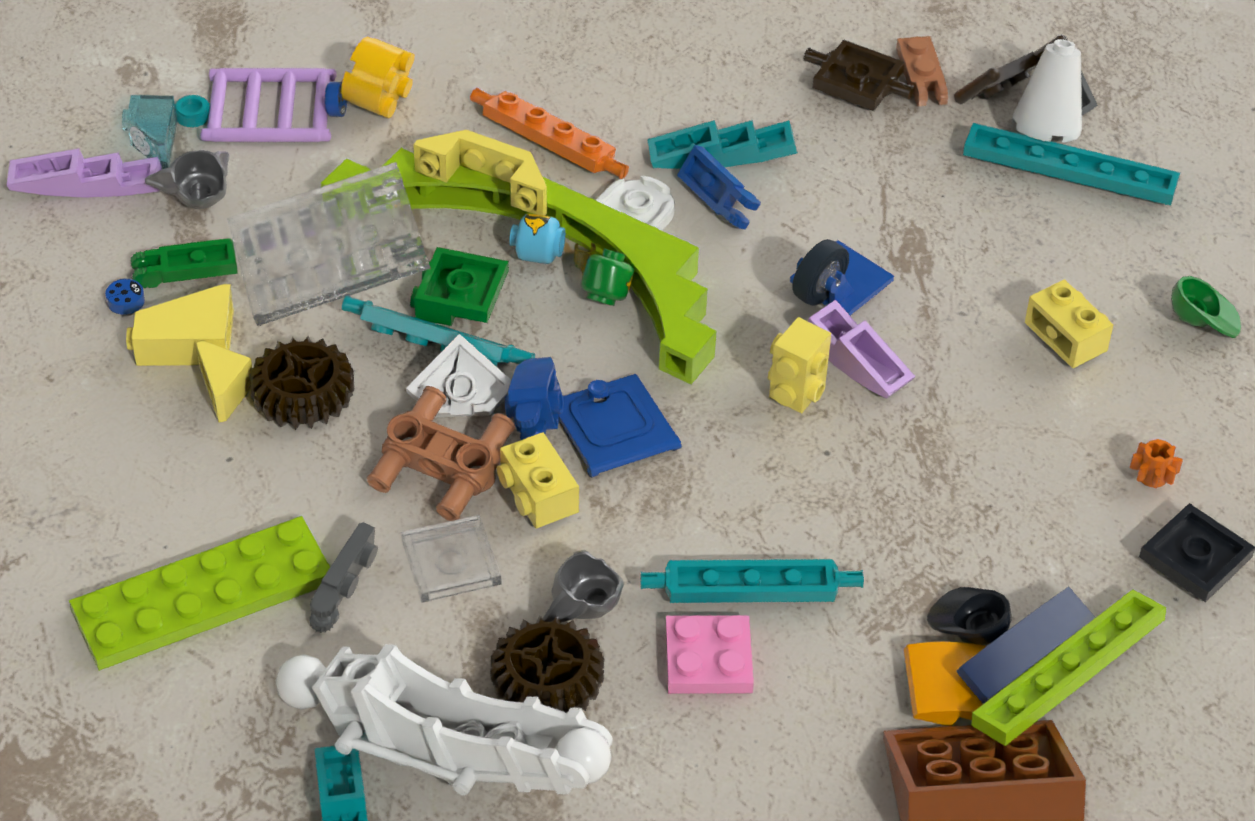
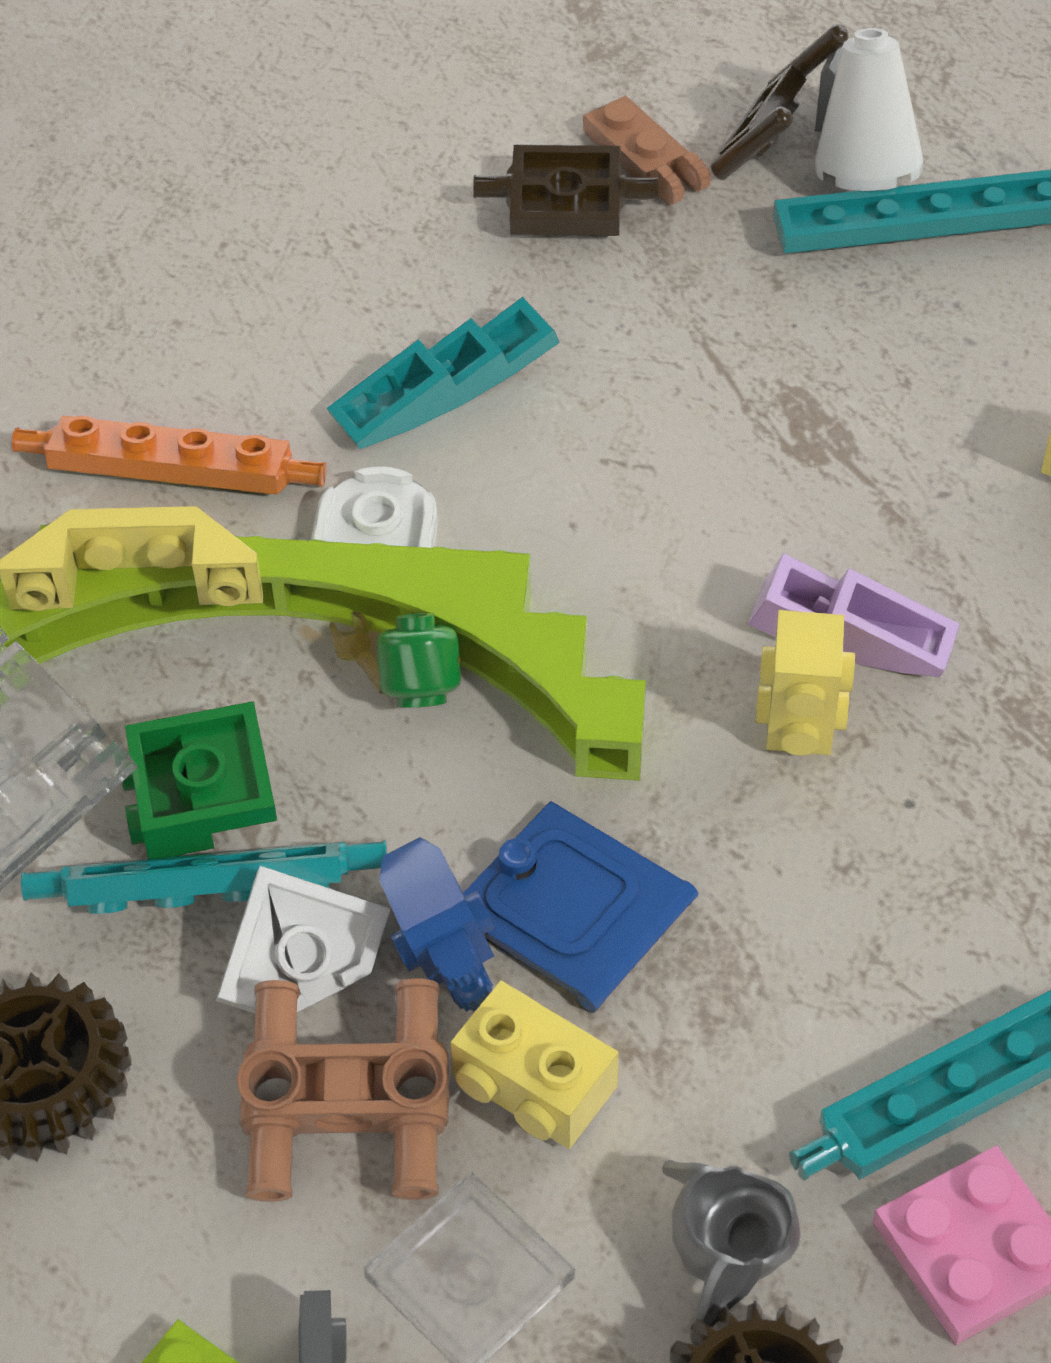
camera: 25 degrees left, 5 degrees up
(538, 238) = (269, 641): medium azure head -> none
(717, 186) = (481, 441): blue hinge -> none
(839, 274) = (748, 514): plate -> none

